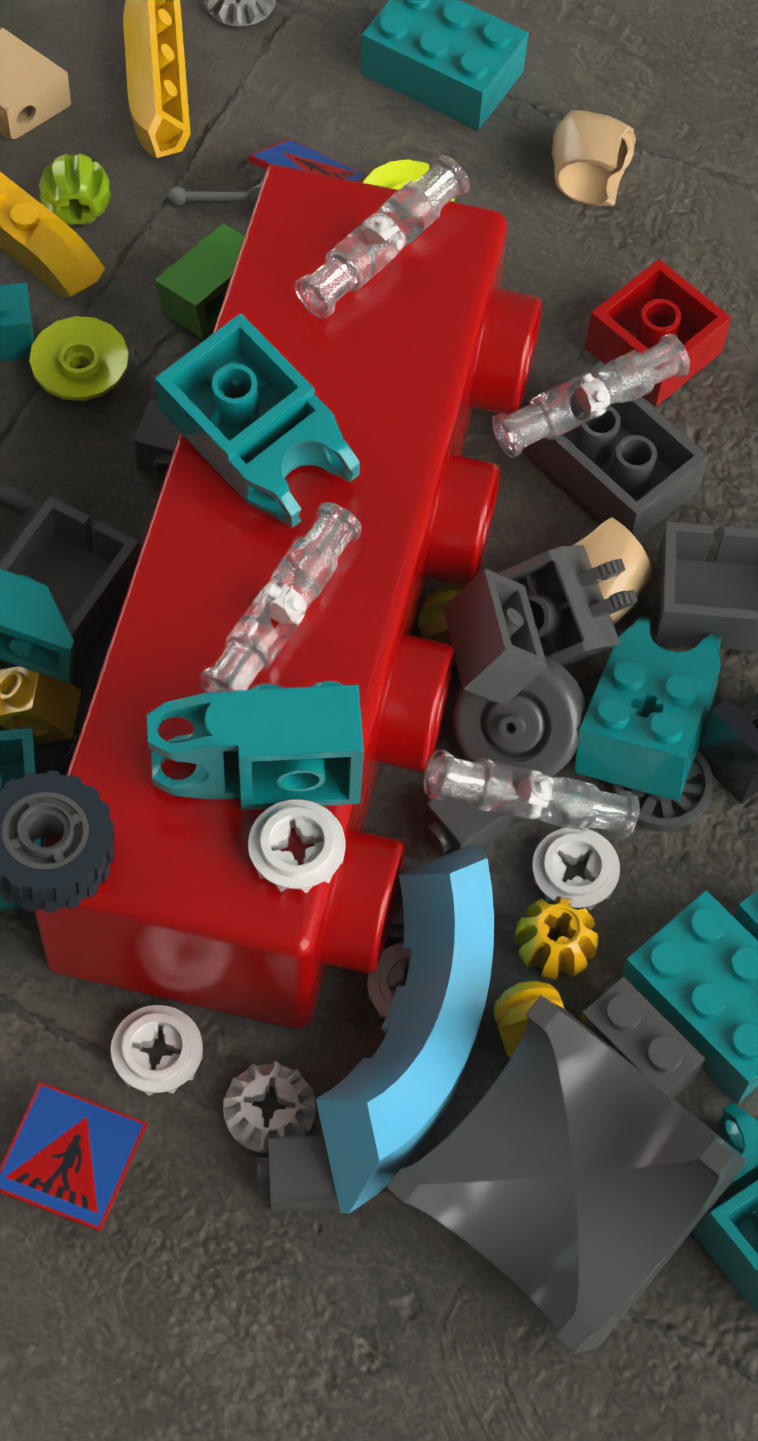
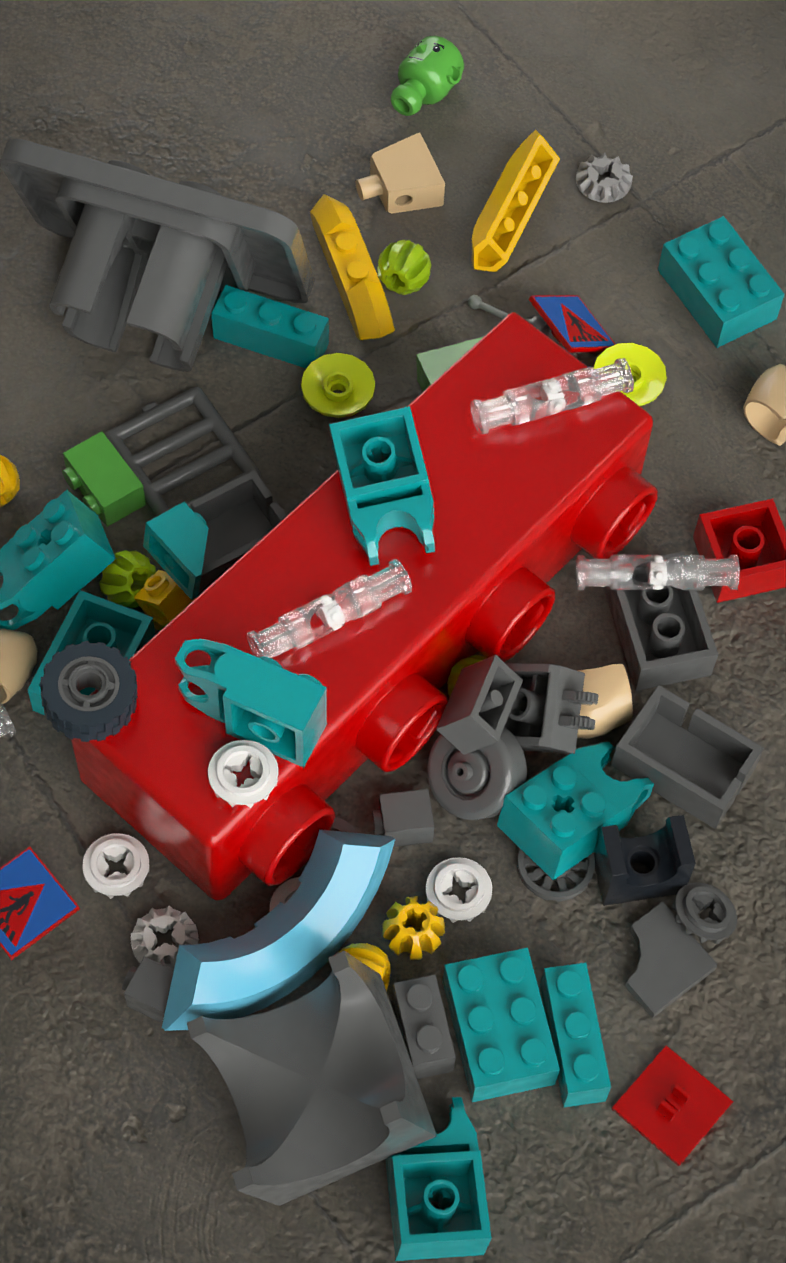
camera: 30 degrees right, 0 degrees up
(550, 799) = (465, 836): clear piece -> none

